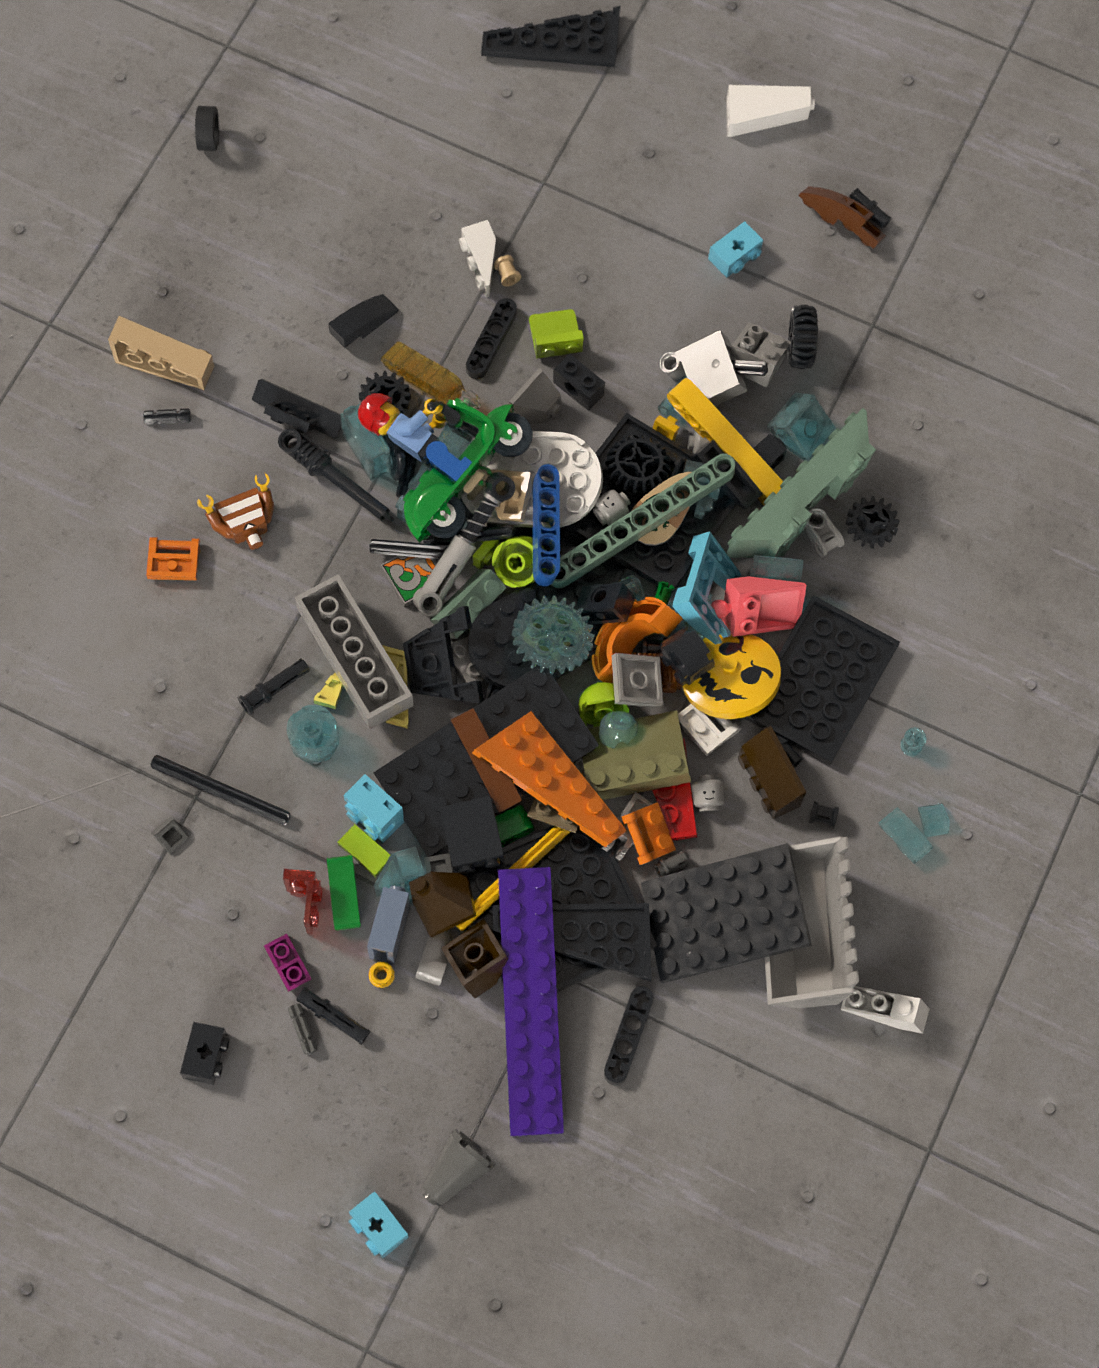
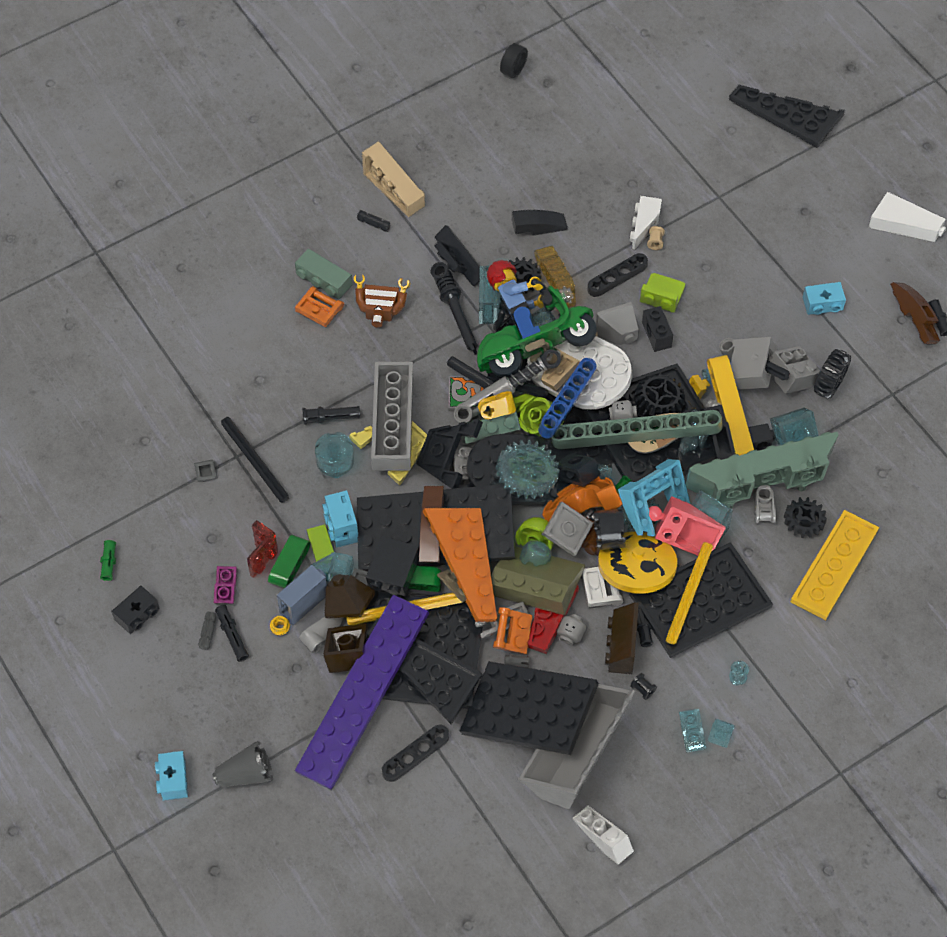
camera: 35 degrees right, 10 degrees down
(129, 1011) = (108, 560): none -> green pin
(152, 515) = (323, 274): none -> sand green brick
(469, 574) = (498, 405): none -> yellow piece
(809, 680) = (689, 593): none -> yellow axle
(935, 560) = (834, 565): none -> yellow plate

